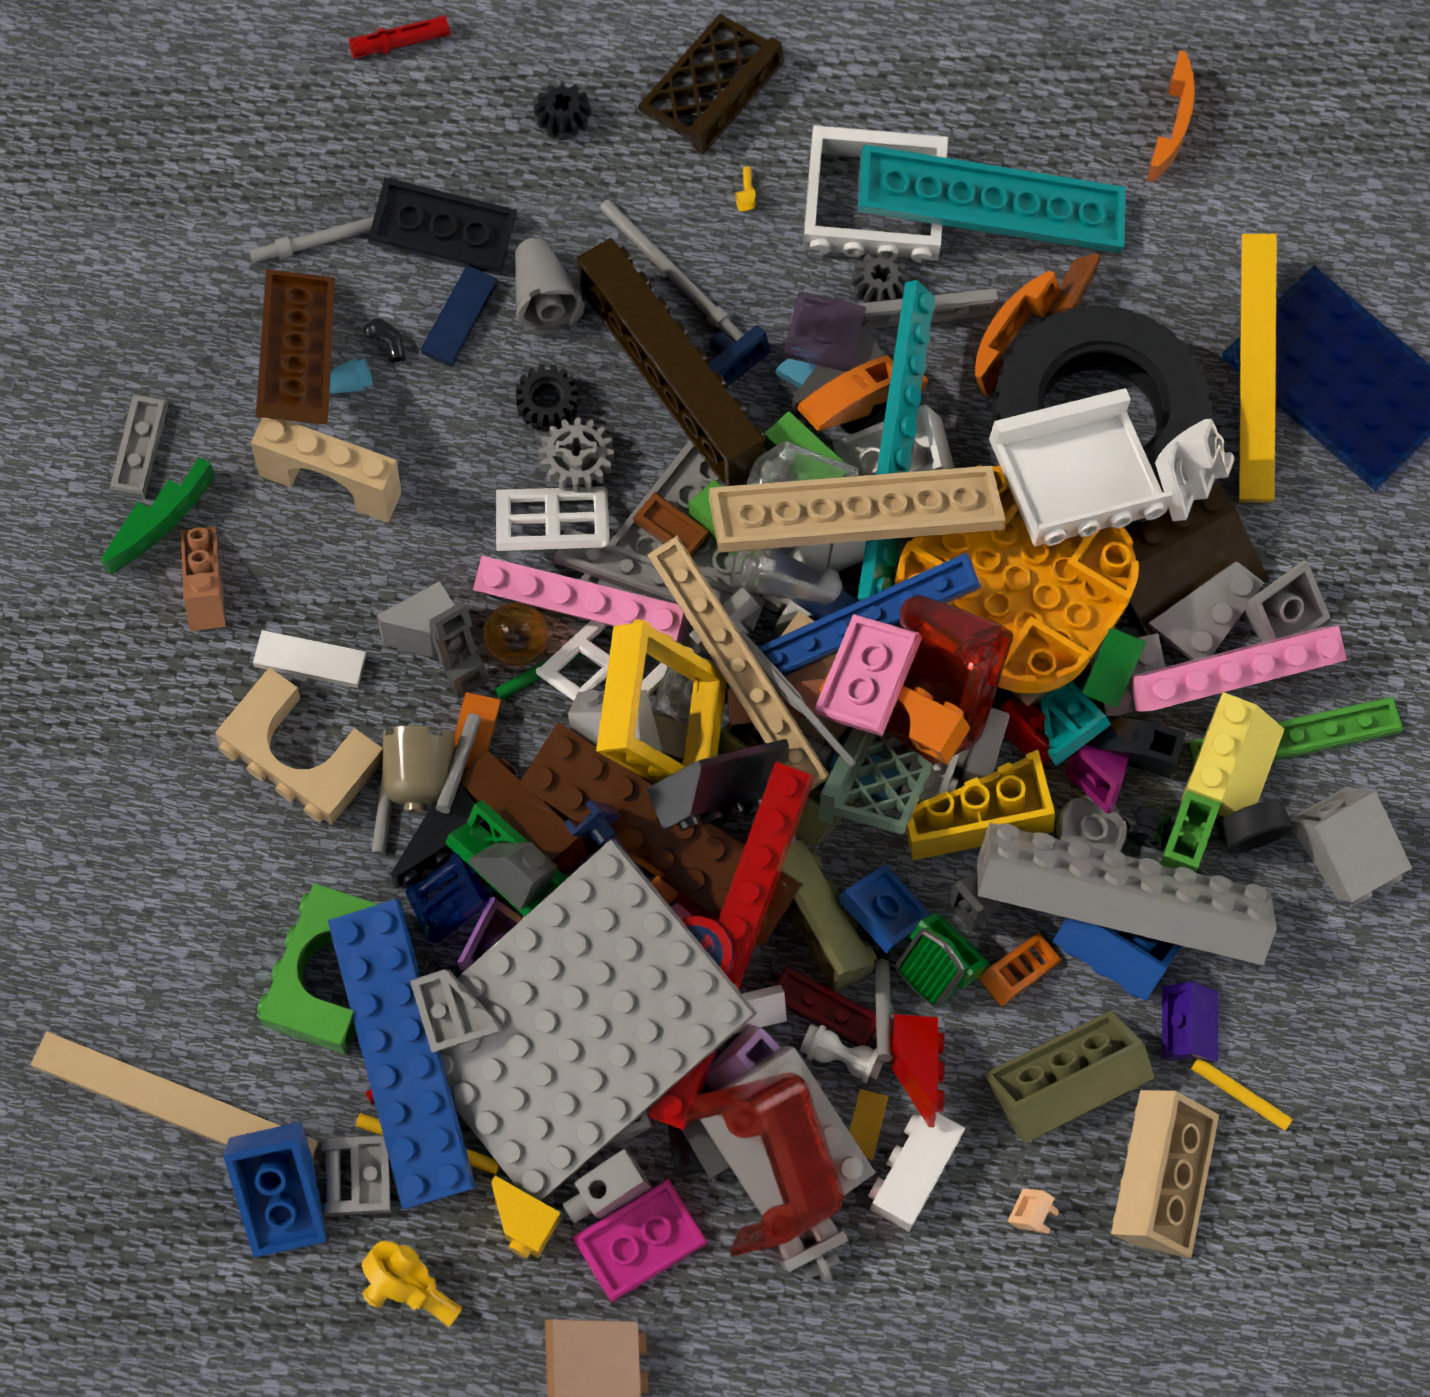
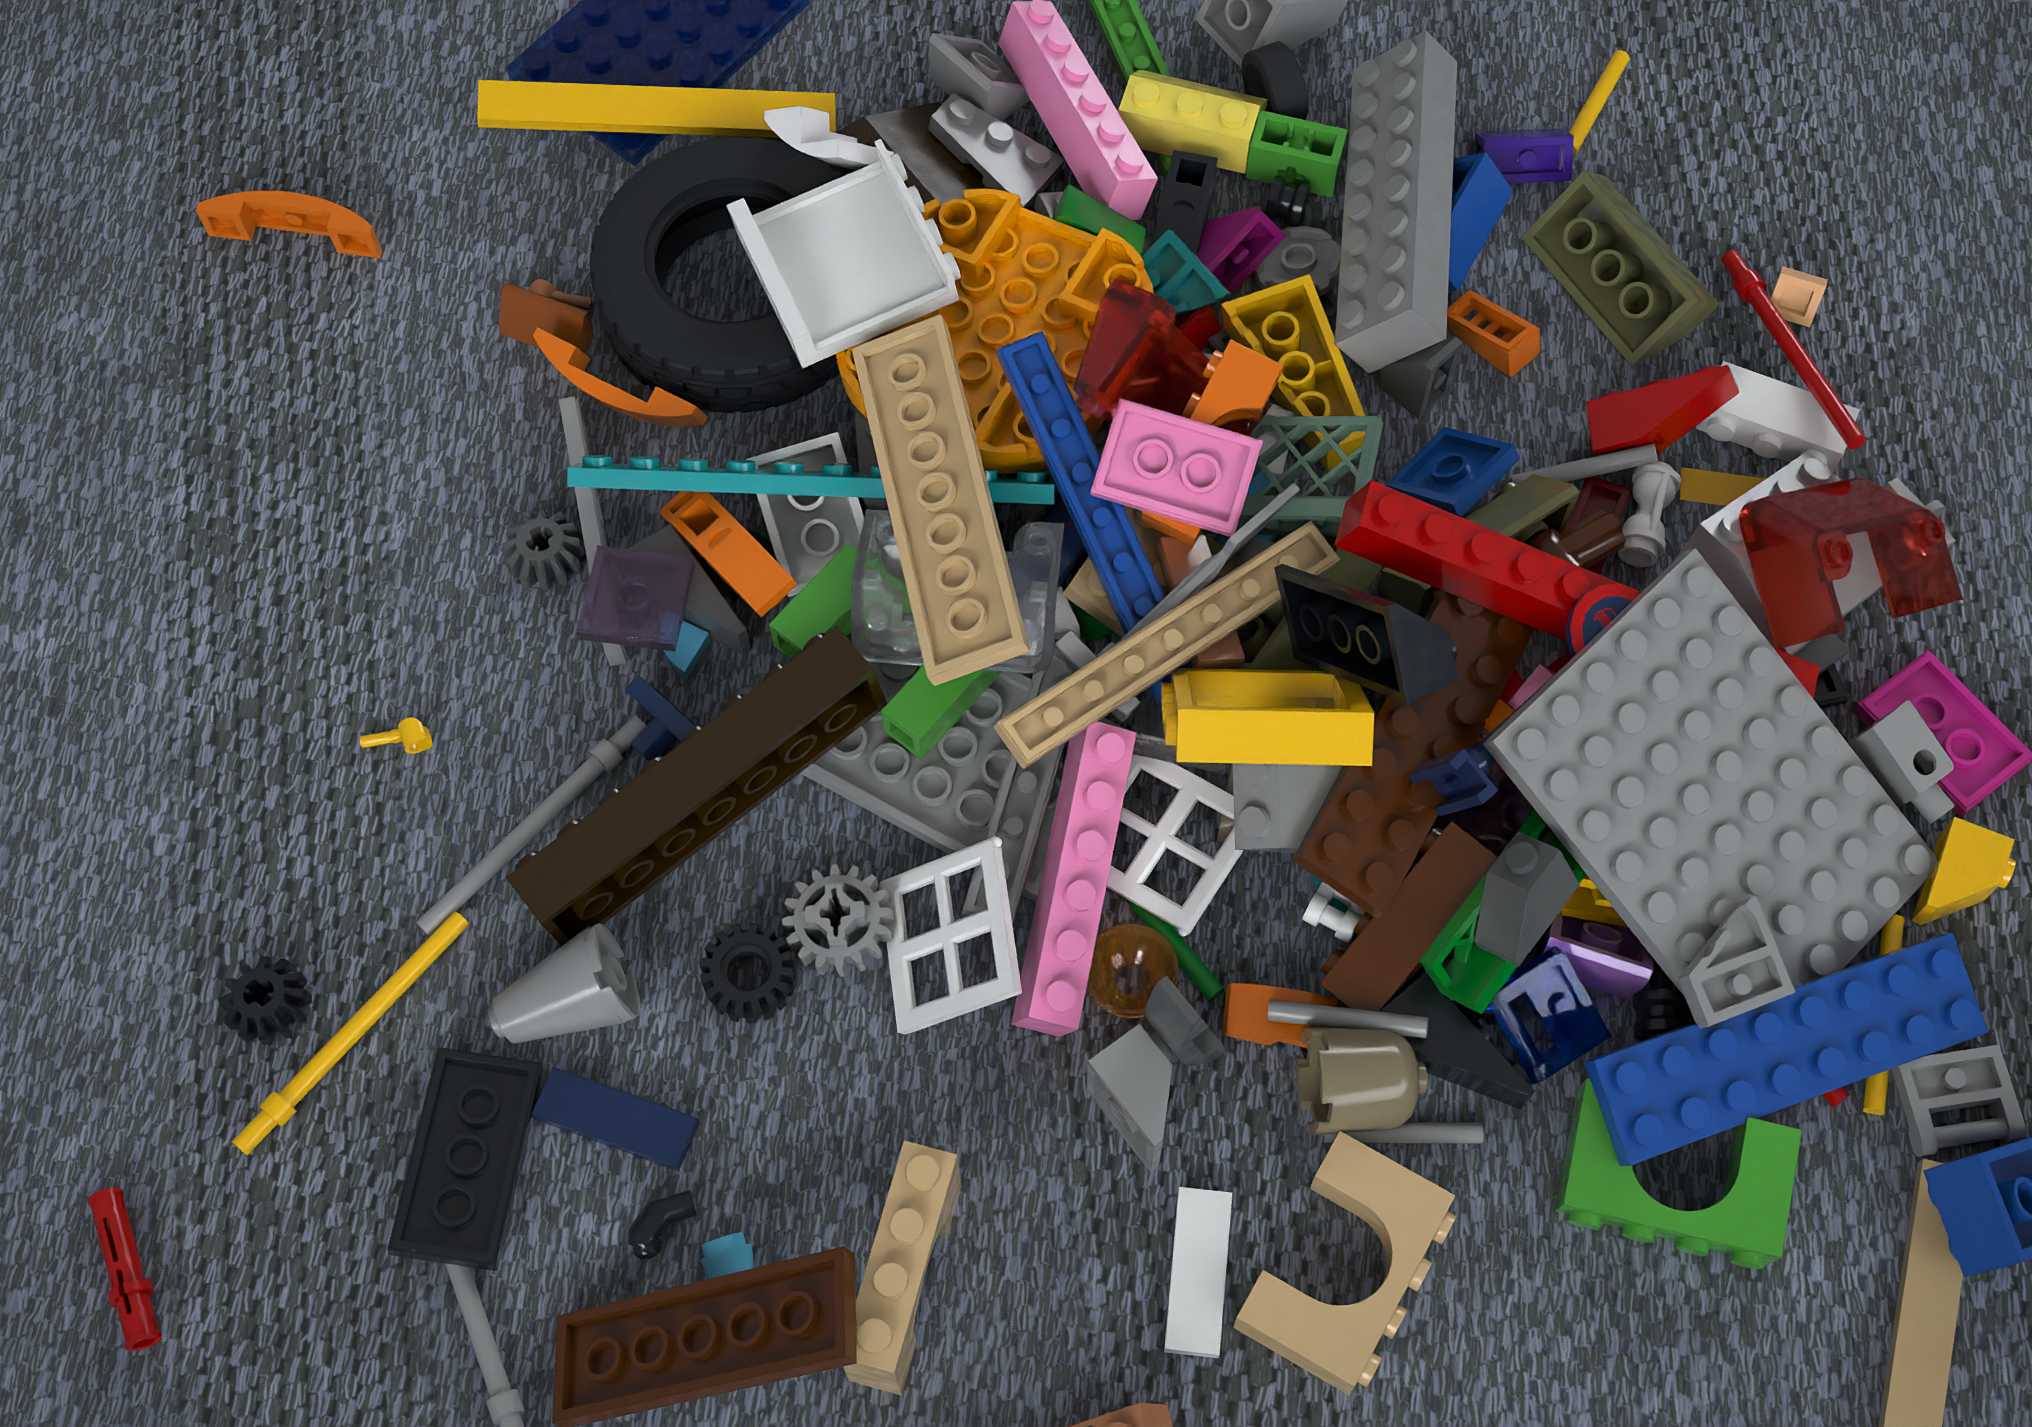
camera: 90 degrees left, 5 degrees down
(493, 121) = (280, 1106): none -> yellow bar
(666, 521) = (944, 776): dark orange tile -> none
(736, 93) = (230, 756): dark brown fence -> none
(805, 975) = (1585, 541): none -> reddish brown piece
(860, 242) = (468, 643): white window -> none
(939, 961) = (1511, 401): green piece -> none
(991, 199) = (422, 417): teal plate -> none
(1043, 1177) = (1753, 290): none -> red bar
(1100, 286) = (547, 289): none -> nougat hand
(1165, 1173) = (1717, 169): tan slope -> none

